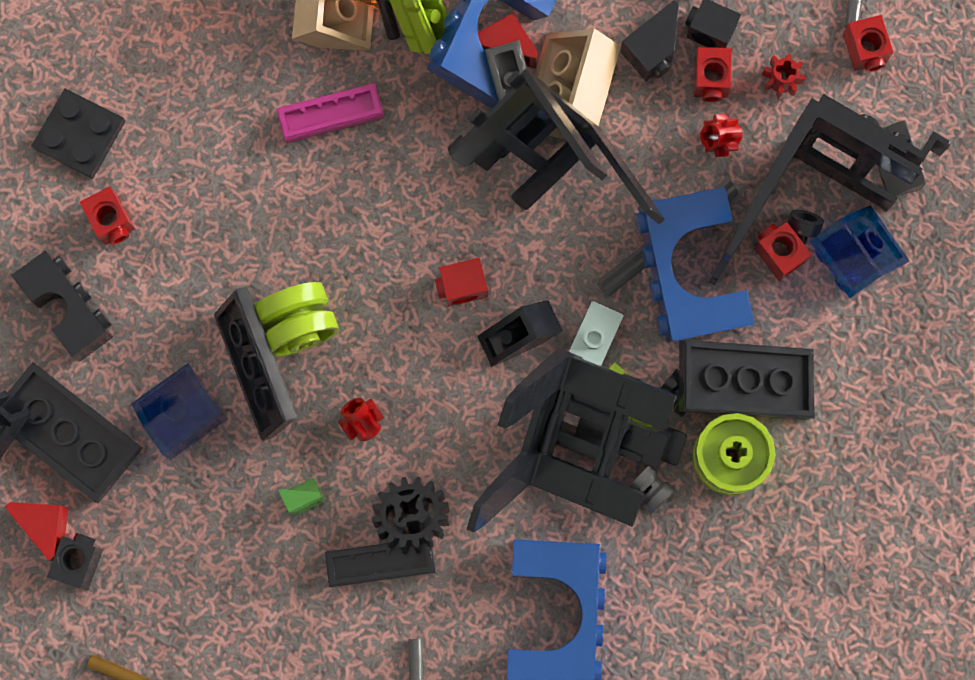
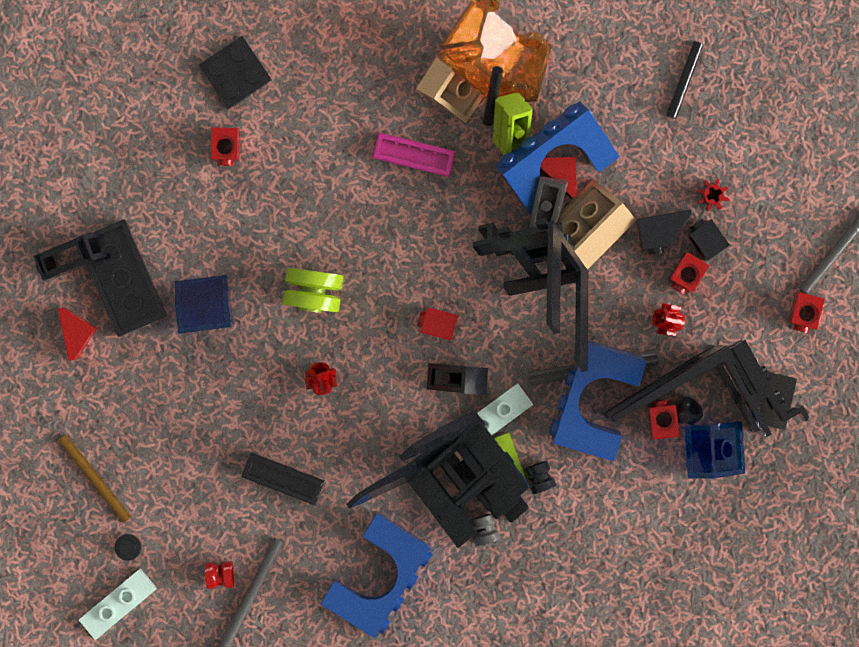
camera: 20 degrees right, 10 degrees up
(47, 280) = (170, 213): black arch -> none
(61, 568) = (74, 372): black brick -> none
(254, 364) = (270, 304): black tile -> none
(302, 497) = (255, 407): bright green slope -> none
(413, 529) = (308, 466): black gear -> none
(746, 379) = (588, 494): black tile -> none
(748, 440) = (561, 549): lime wheel -> none
(792, 73) = (727, 301): red gear -> none

